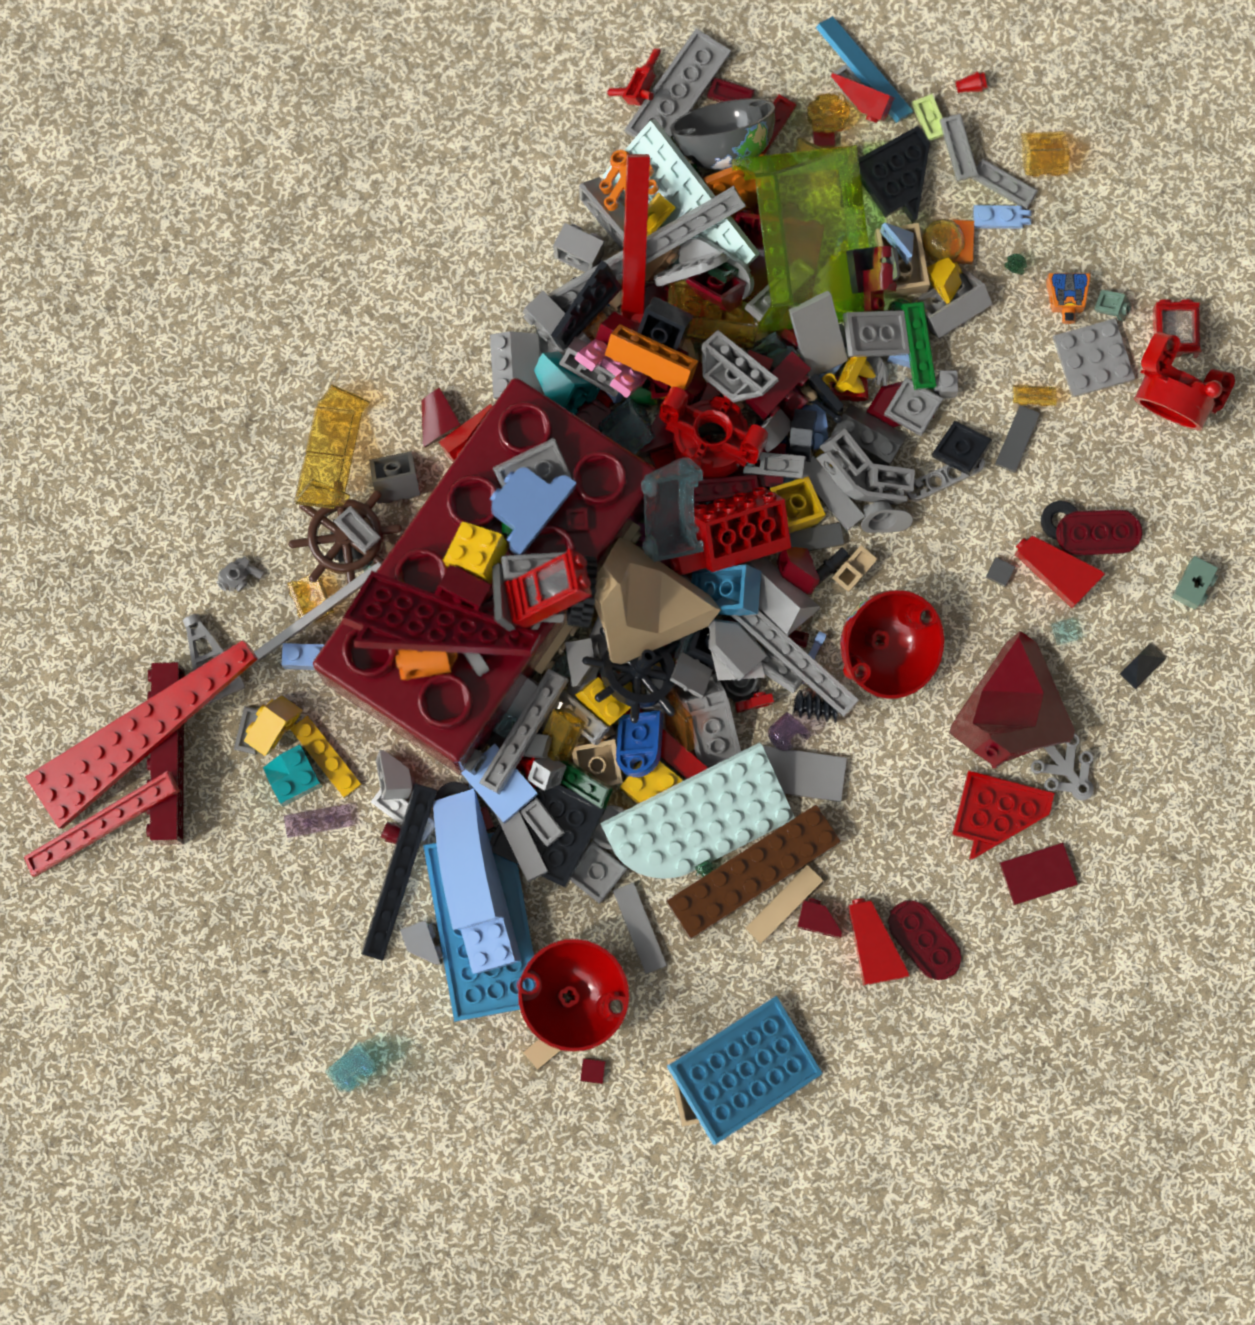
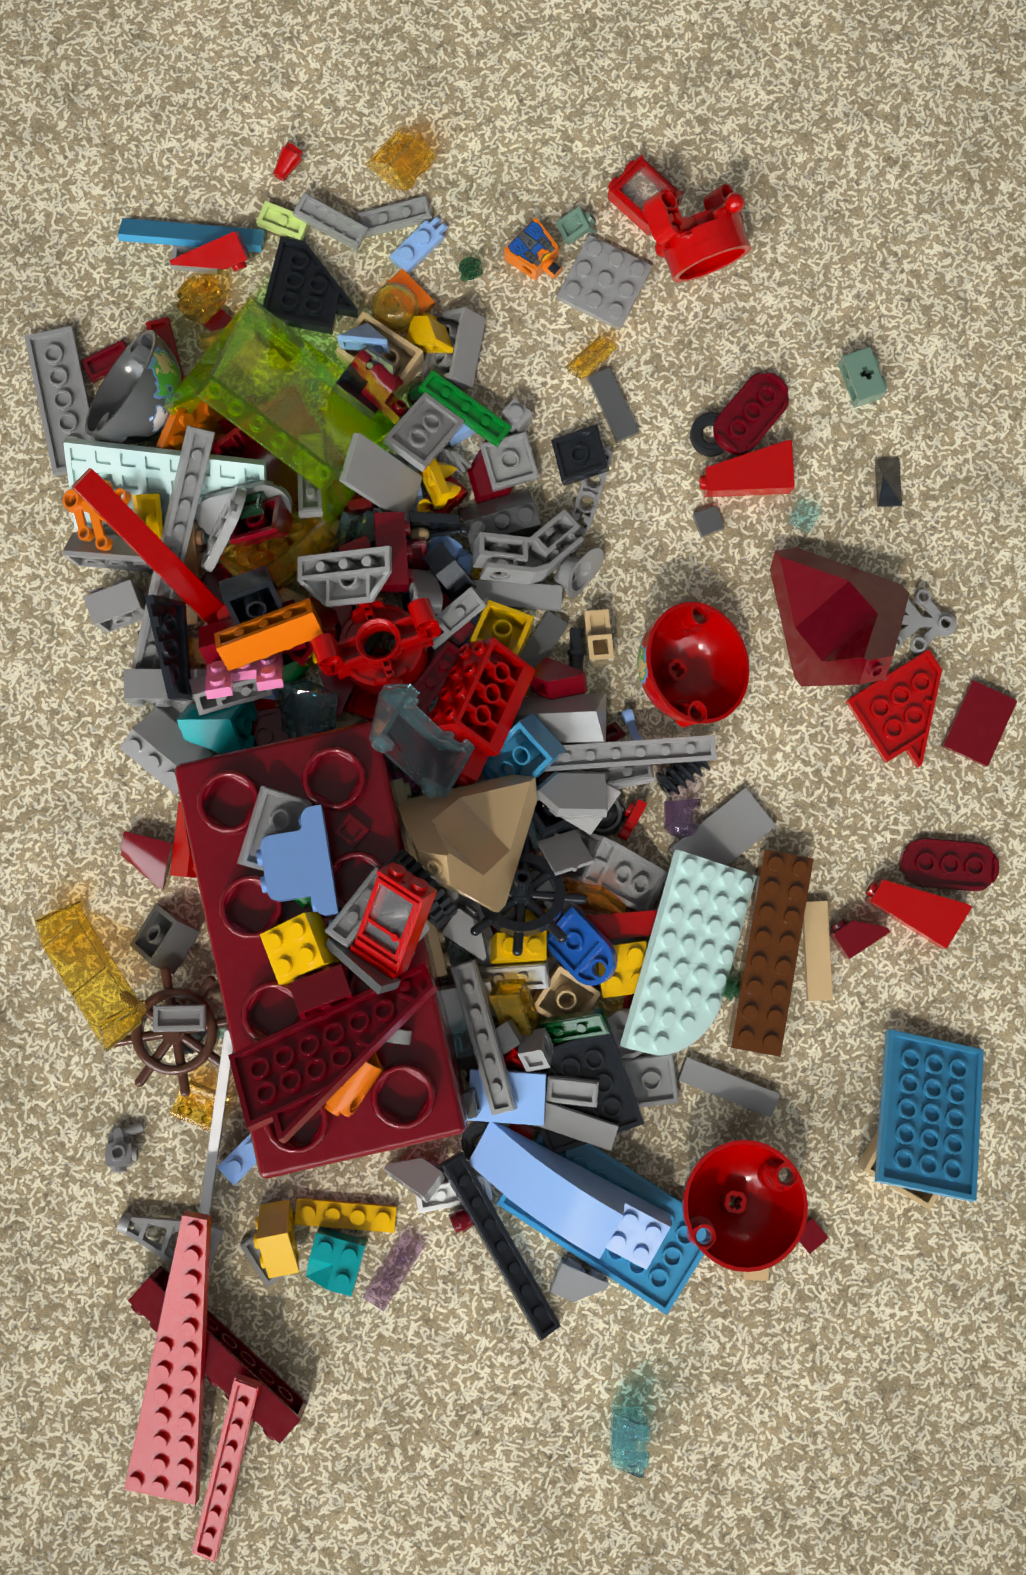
camera: 50 degrees left, 5 degrees up
(640, 83) = (26, 424): red piece -> none

